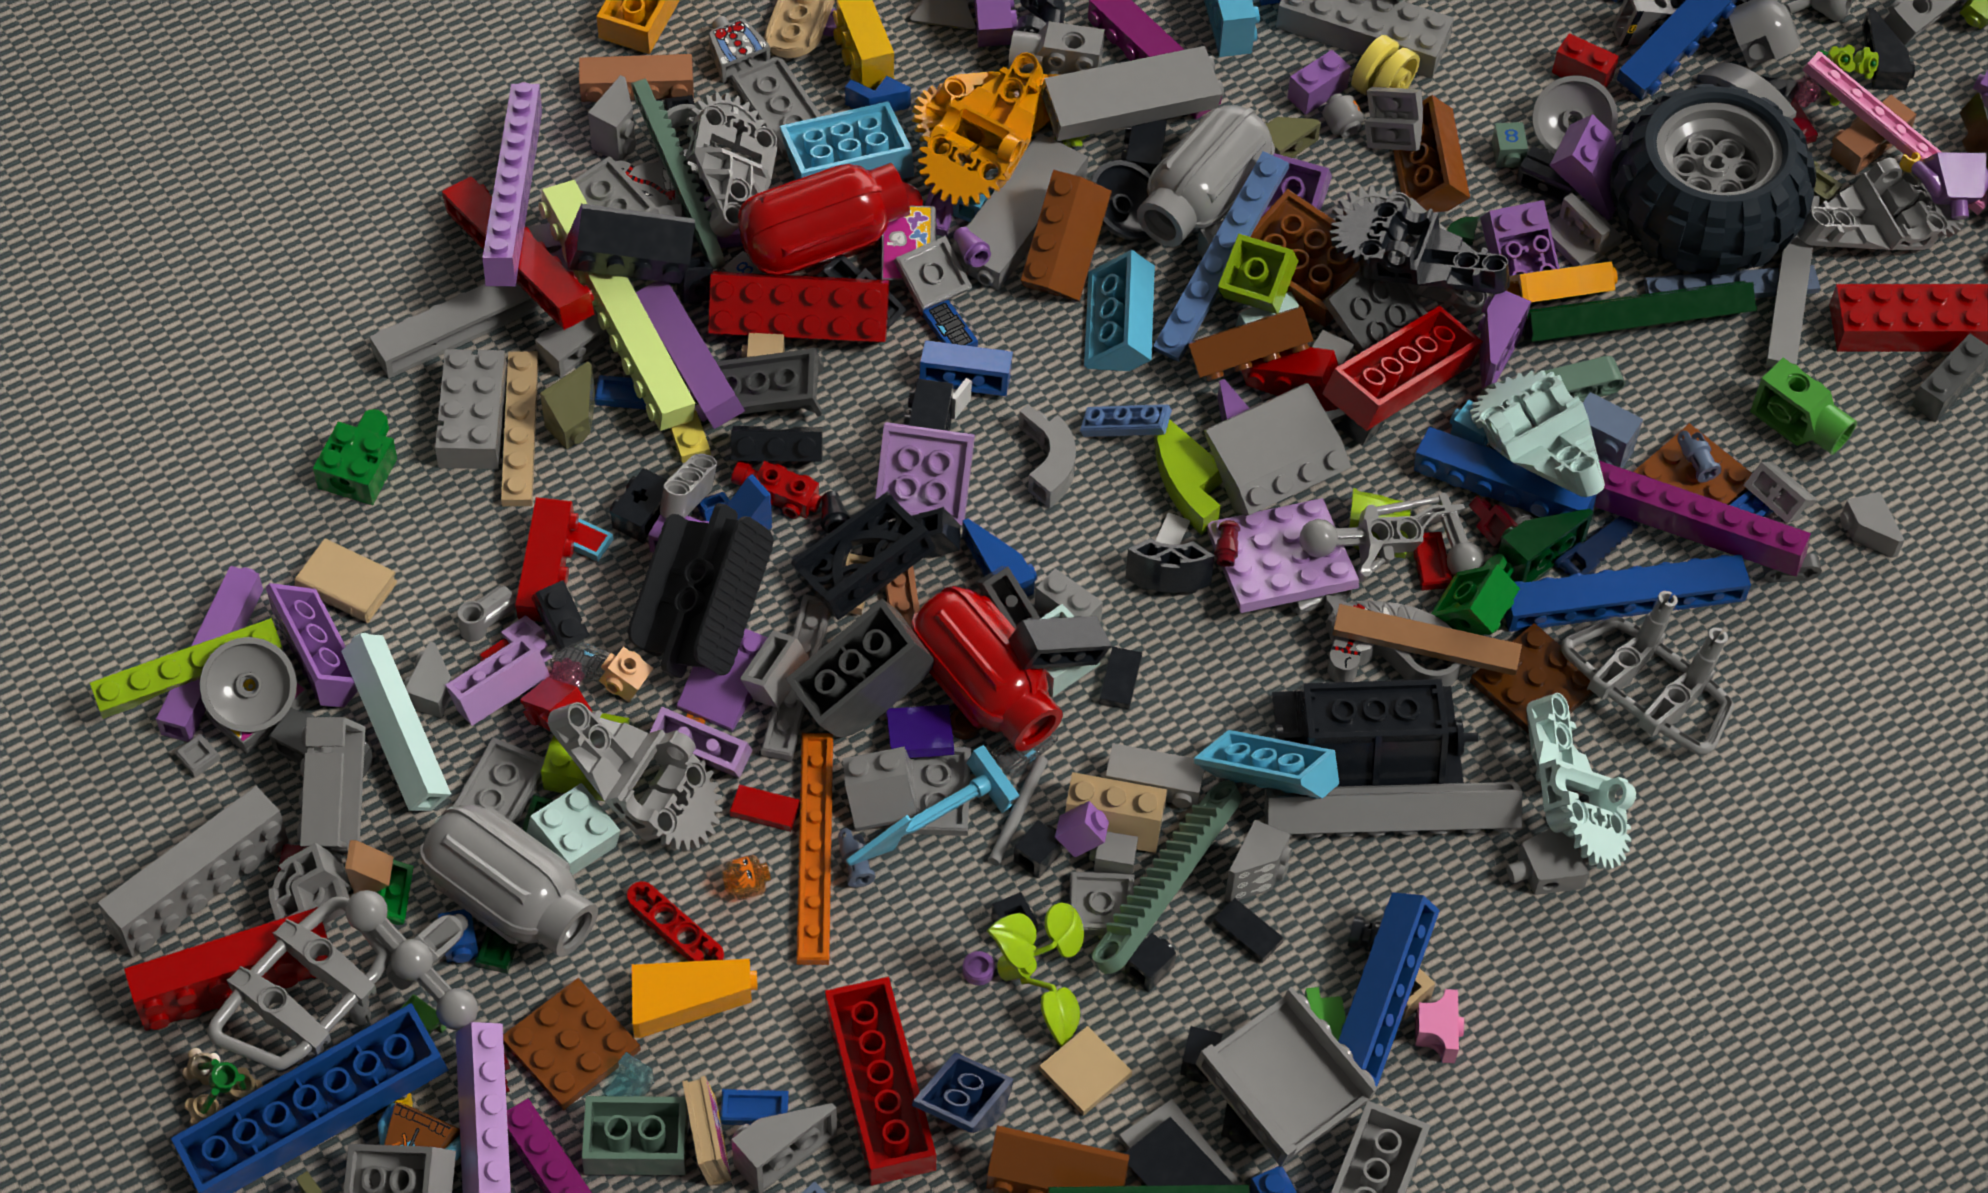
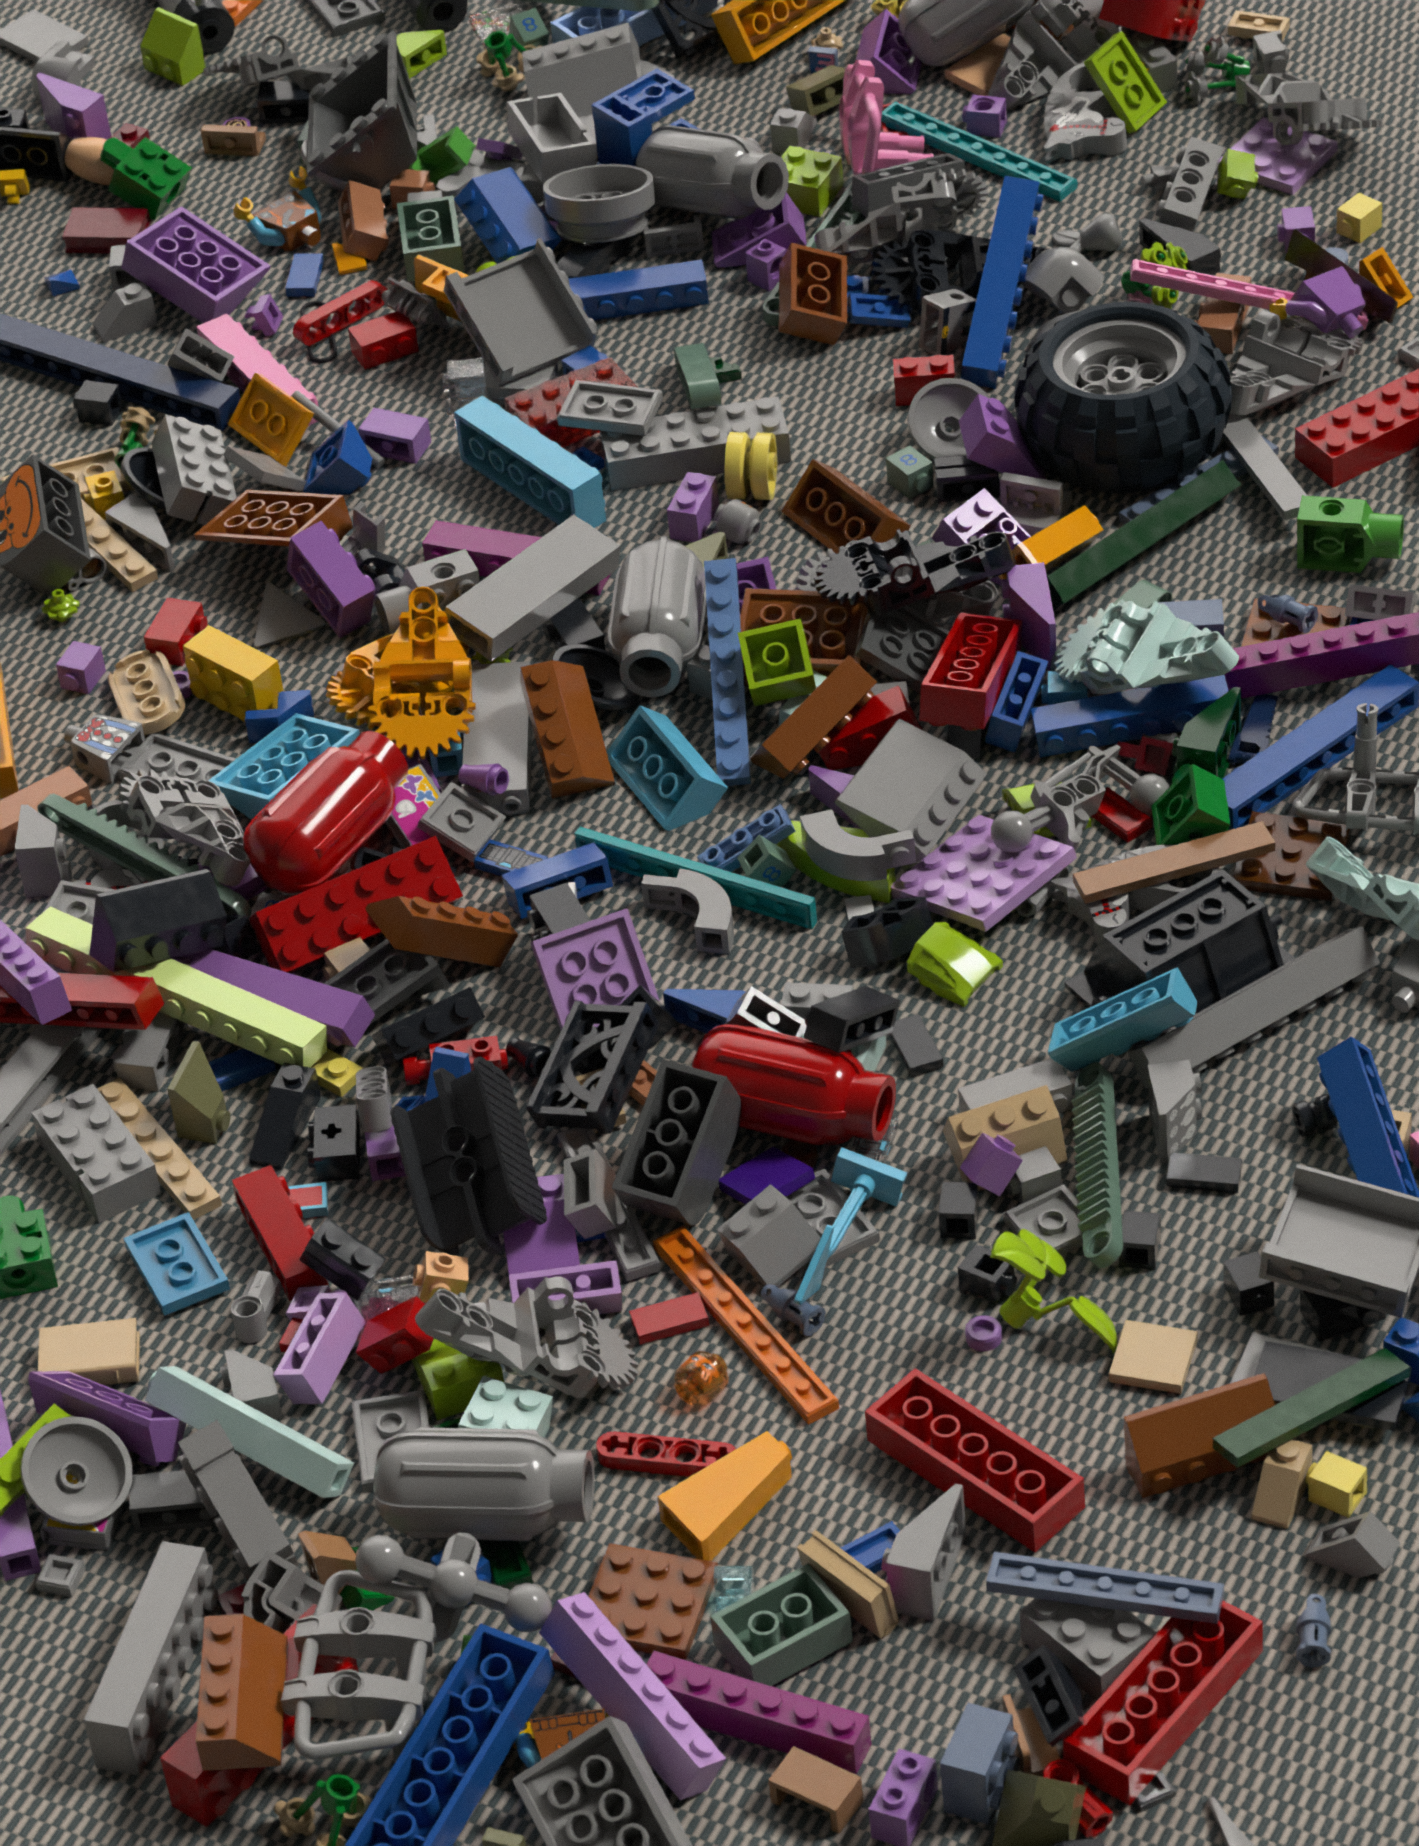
camera: 25 degrees left, 15 degrees down
(204, 952) = (240, 1694): none -> dark orange slope
(459, 539) = (176, 1263): none -> dark azure plate
(624, 458) = (285, 1115): none -> black slope
(838, 370) = (444, 929): none -> dark orange slope
(966, 1094) = (1068, 1419): dark blue slope -> none
(1018, 810) = (911, 1196): light grey bar -> none
(1085, 447) = (741, 890): none -> teal tile
(1126, 448) = (766, 862): none -> sand green brick
(1186, 486) = (852, 855): none -> light grey arch
(1201, 621) = (951, 963): none -> lime slope
(1227, 545) = (929, 881): dark red arm -> none
(1394, 118) = (792, 495): light grey slope -> none
(1425, 412) = (1016, 701): none -> blue brick

